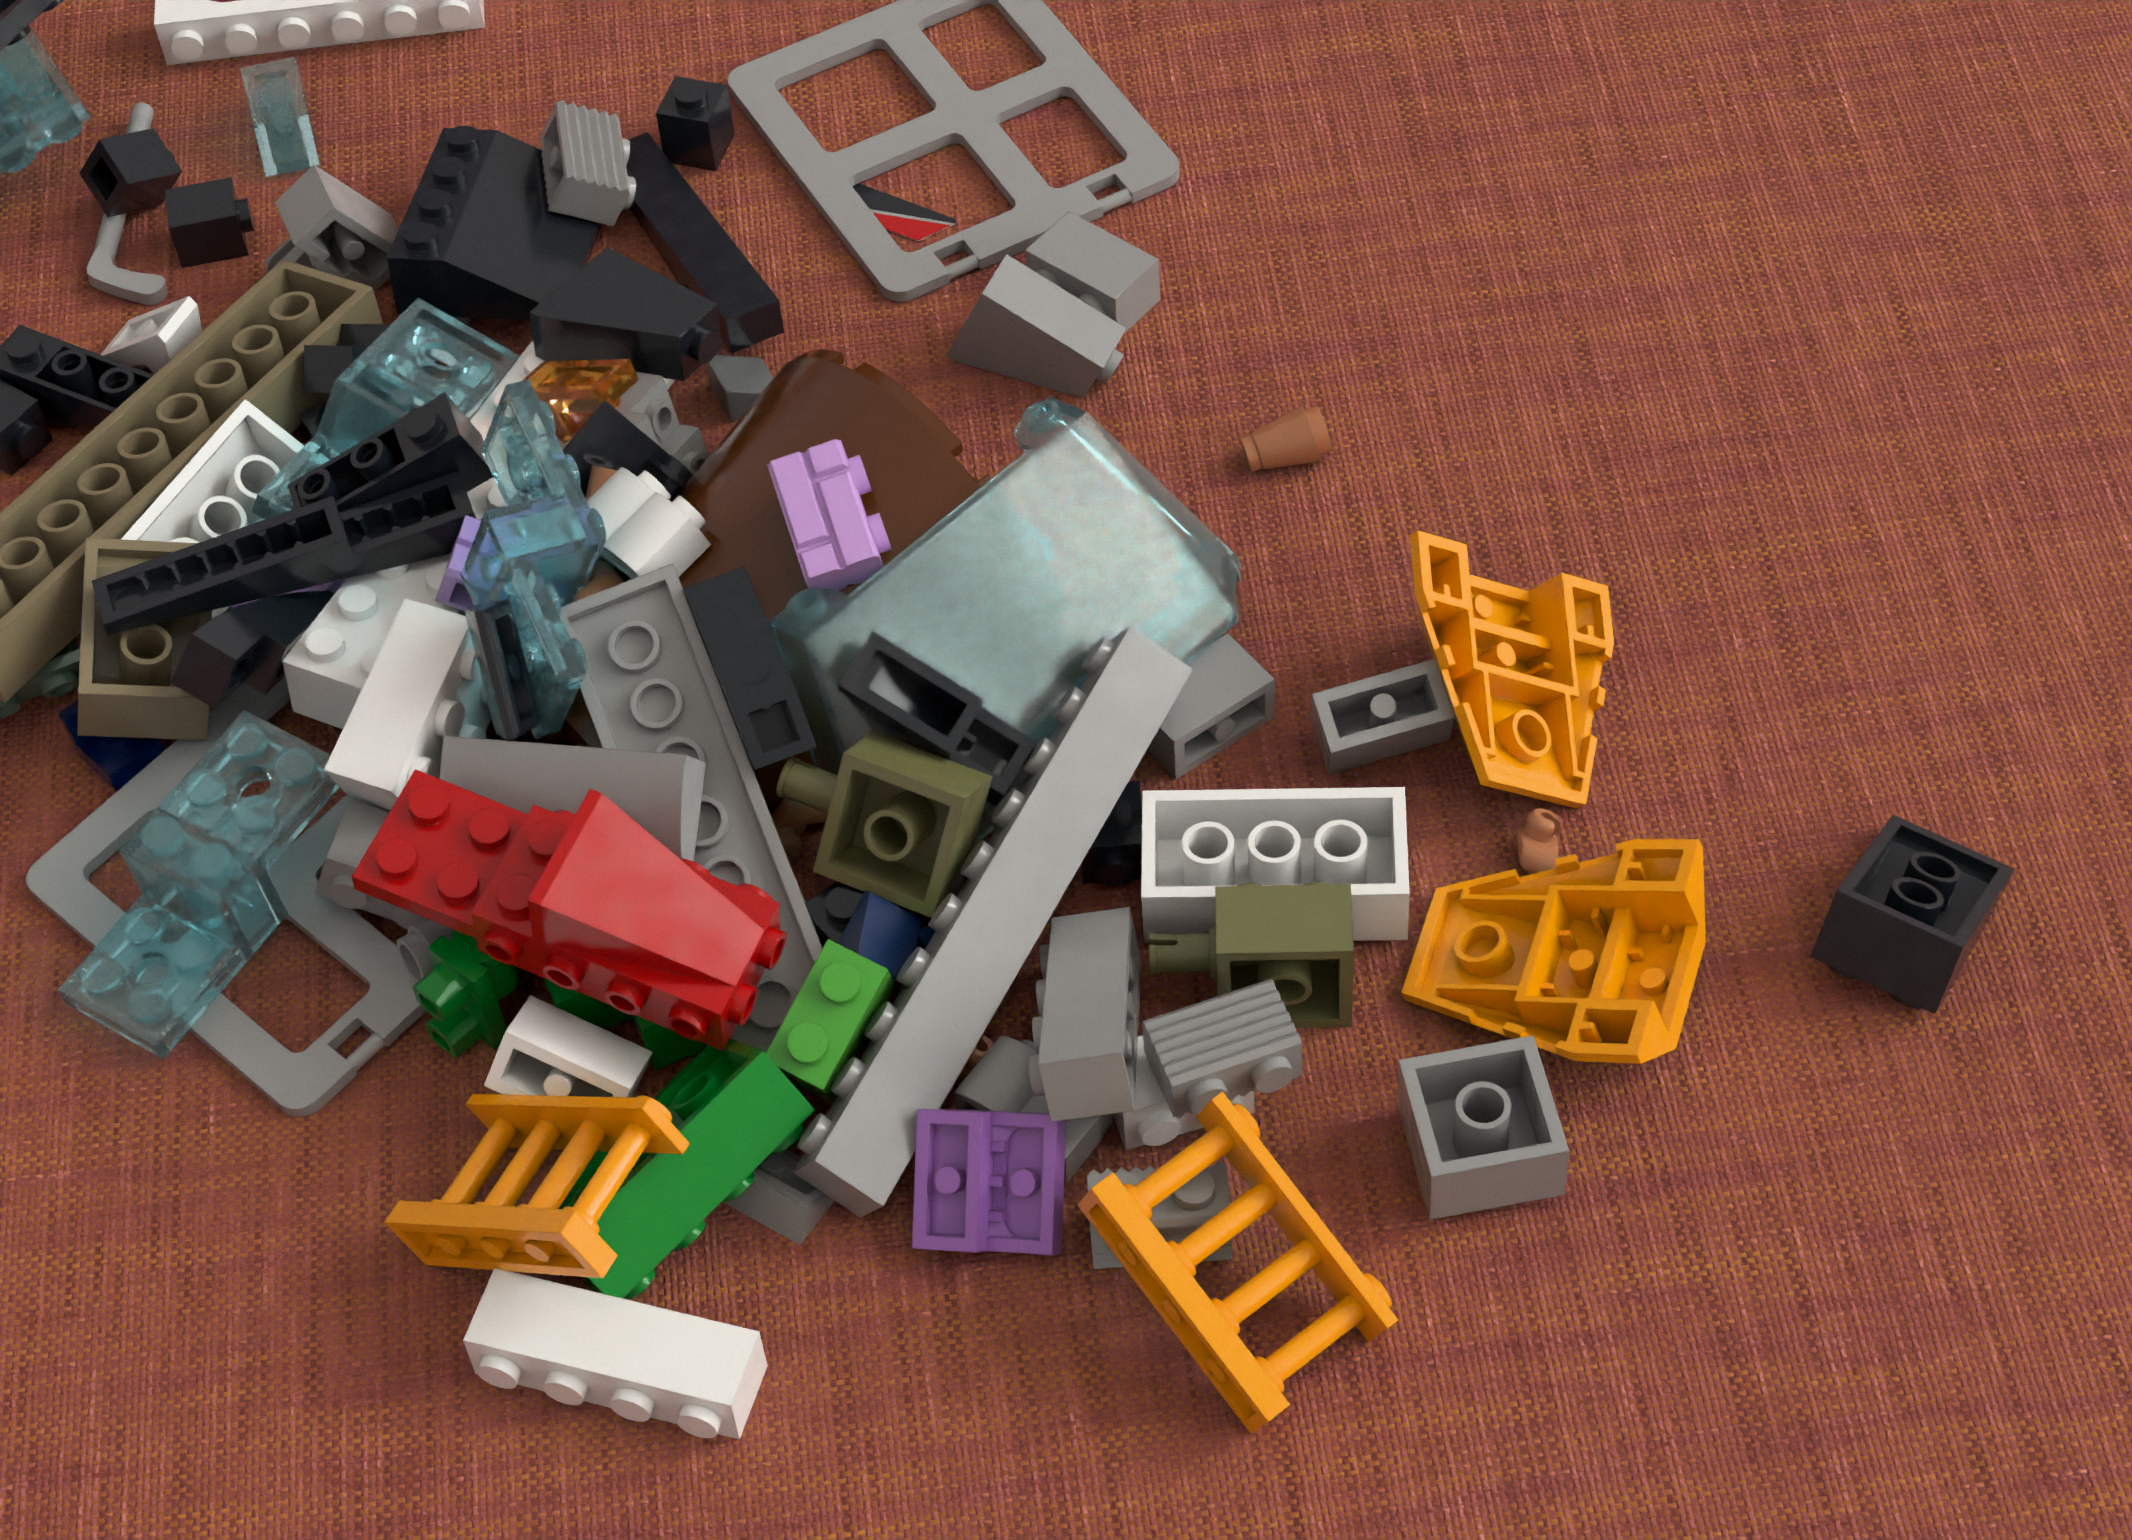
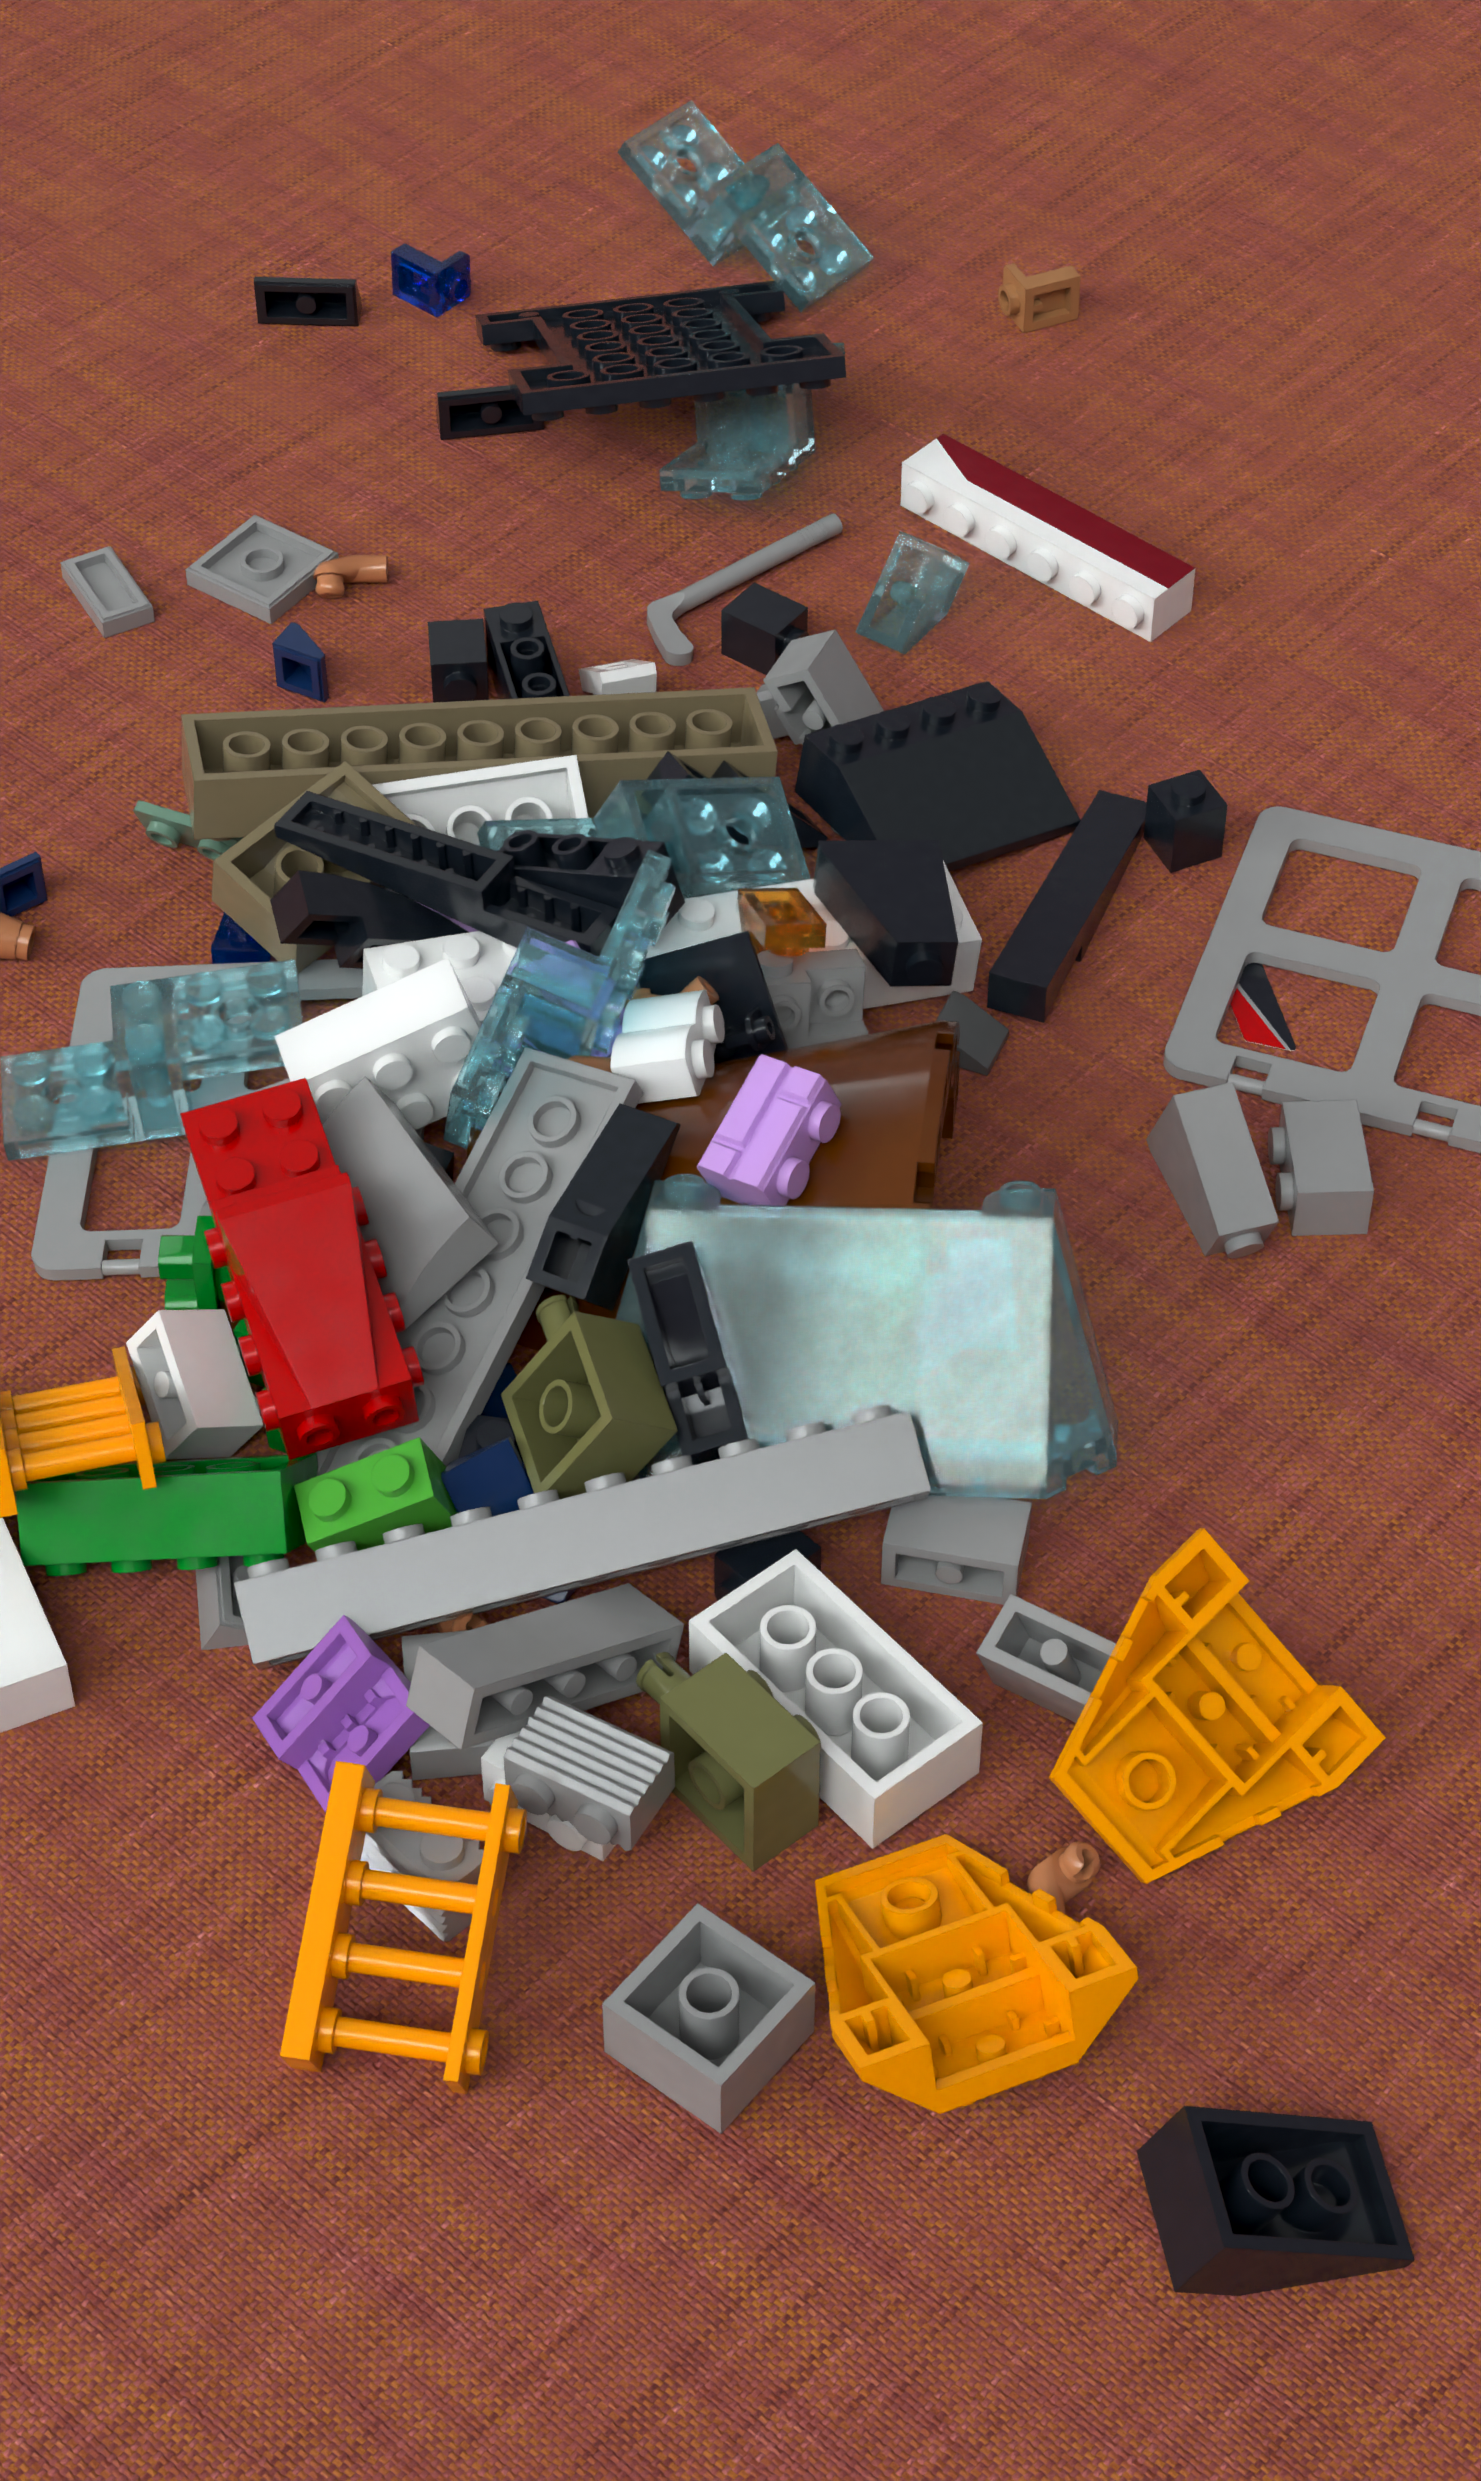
camera: 45 degrees right, 5 degrees down
(130, 172) = (754, 551): black brick -> none
(503, 668) = (440, 1057): black slope -> none
(586, 164) = (1054, 785): light grey brick -> none
(1288, 441) = (1301, 1414): nougat cone -> none

